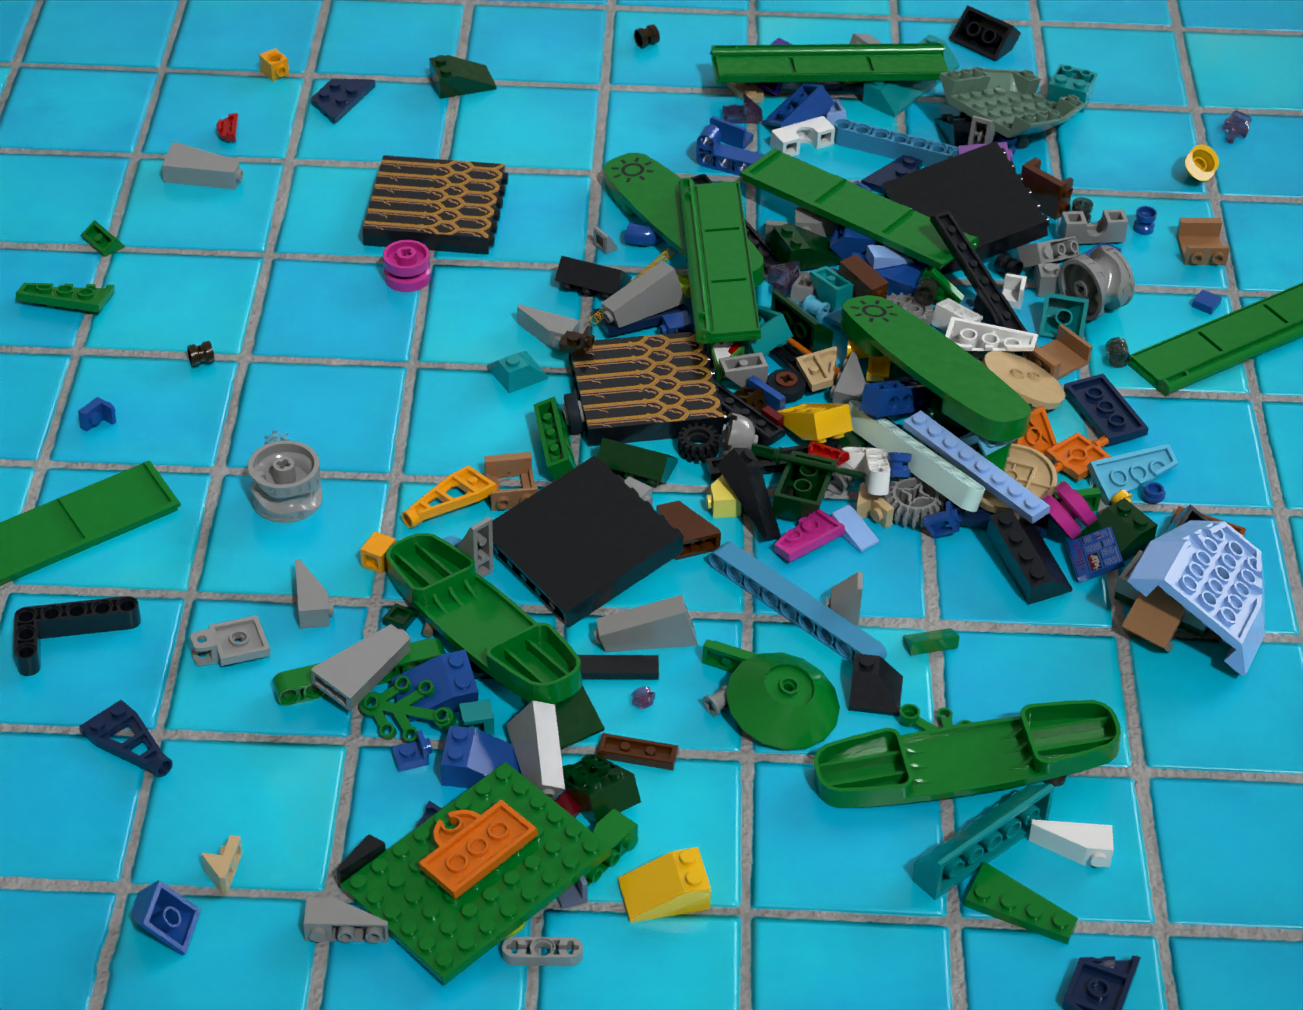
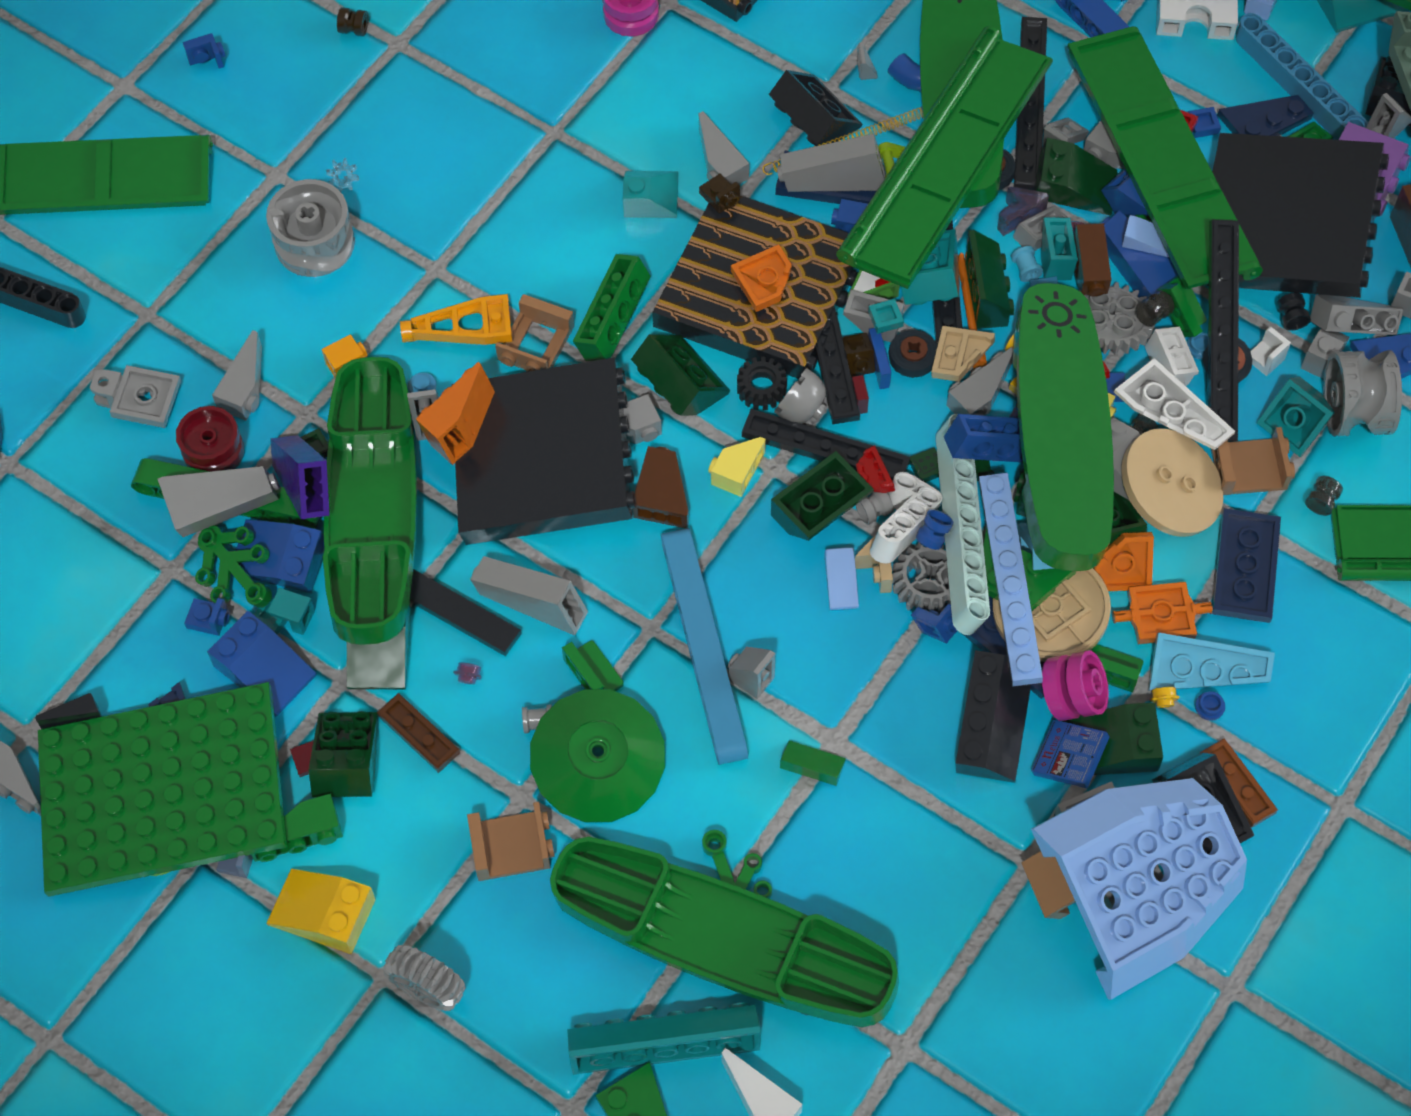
camera: 35 degrees right, 20 degrees up
(319, 637) = (210, 439): none -> dark red wheel
(426, 621) = (302, 475): none -> dark purple slope
(475, 846) = (162, 767): orange plate -> none
(509, 538) = (457, 415): none -> orange slope
(538, 746) = (311, 687): light grey slope -> none
(563, 944) = (149, 892): light grey beam -> none
(573, 413) = (654, 280): black wheel -> none
(651, 375) = (763, 276): none -> orange plate
(748, 485) = (757, 479): black wedge -> none
(758, 361) = (886, 316): none -> teal tile
(767, 783) = (510, 844): none -> medium nougat panel
(775, 455) = (812, 451): dark green piece -> none
(786, 882) = (424, 977): none -> light grey gear
(810, 534) = (785, 562): dark pink wing -> none
(818, 420) = (901, 418): yellow slope -> none
(875, 686) = (706, 789): black slope -> none

